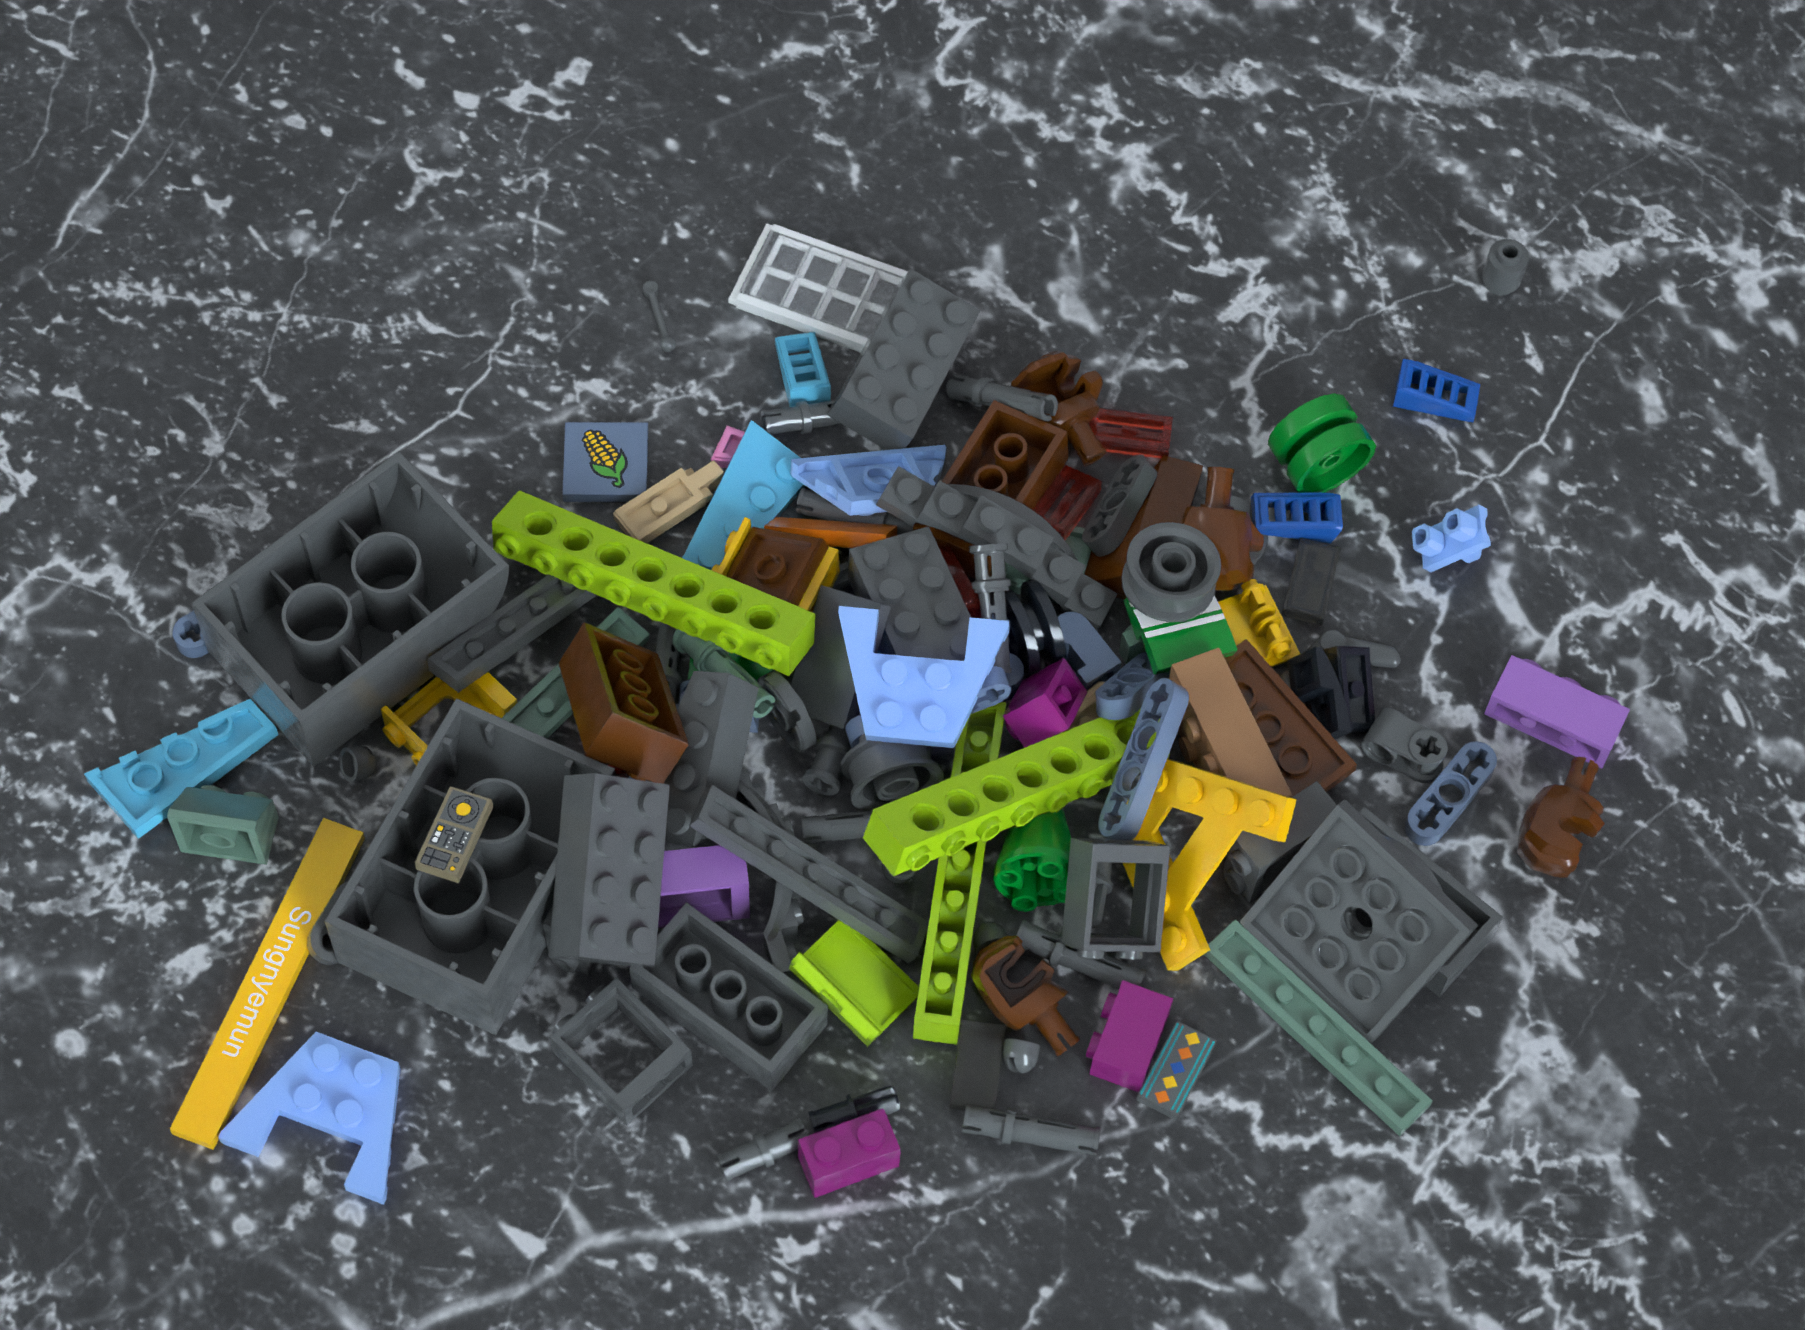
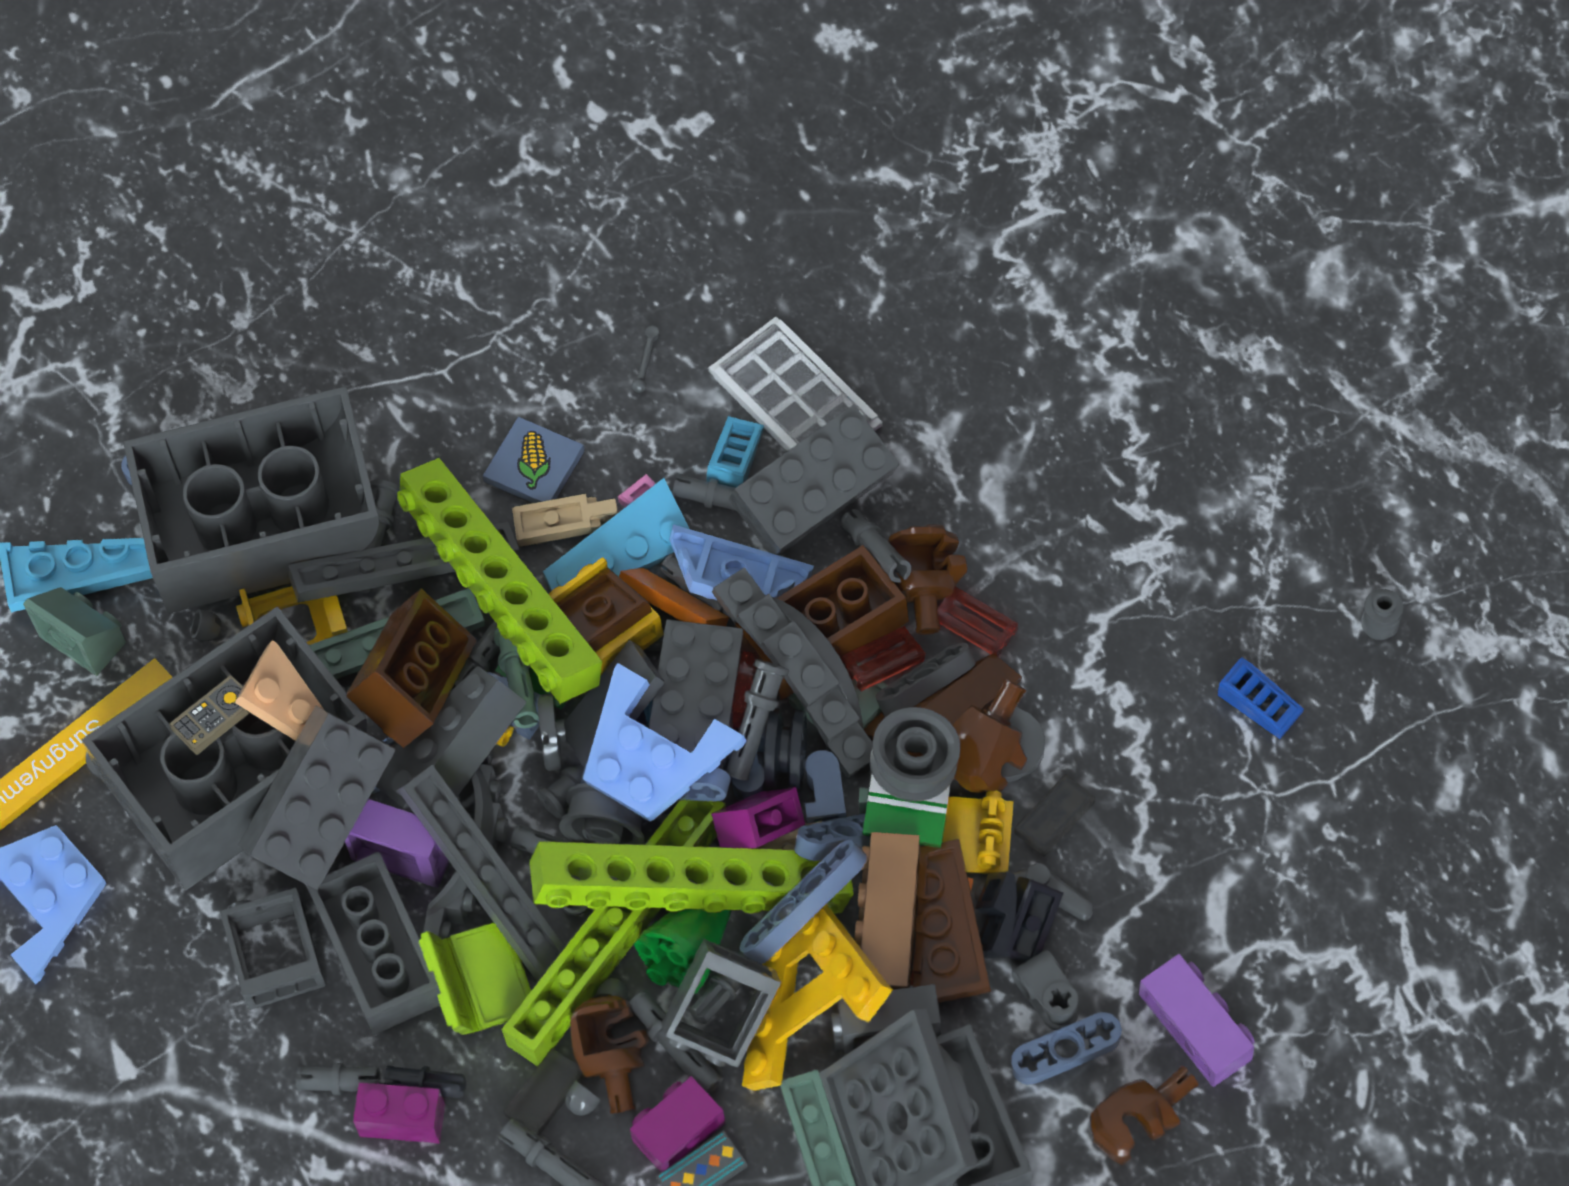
camera: 35 degrees right, 0 degrees up
(512, 785) = (278, 693): none -> light nougat wing
(1321, 444) = (1121, 701): green wheel -> none
(1323, 515) = (1076, 771): blue slope -> none
(1455, 538) = (1190, 831): light blue hips -> none

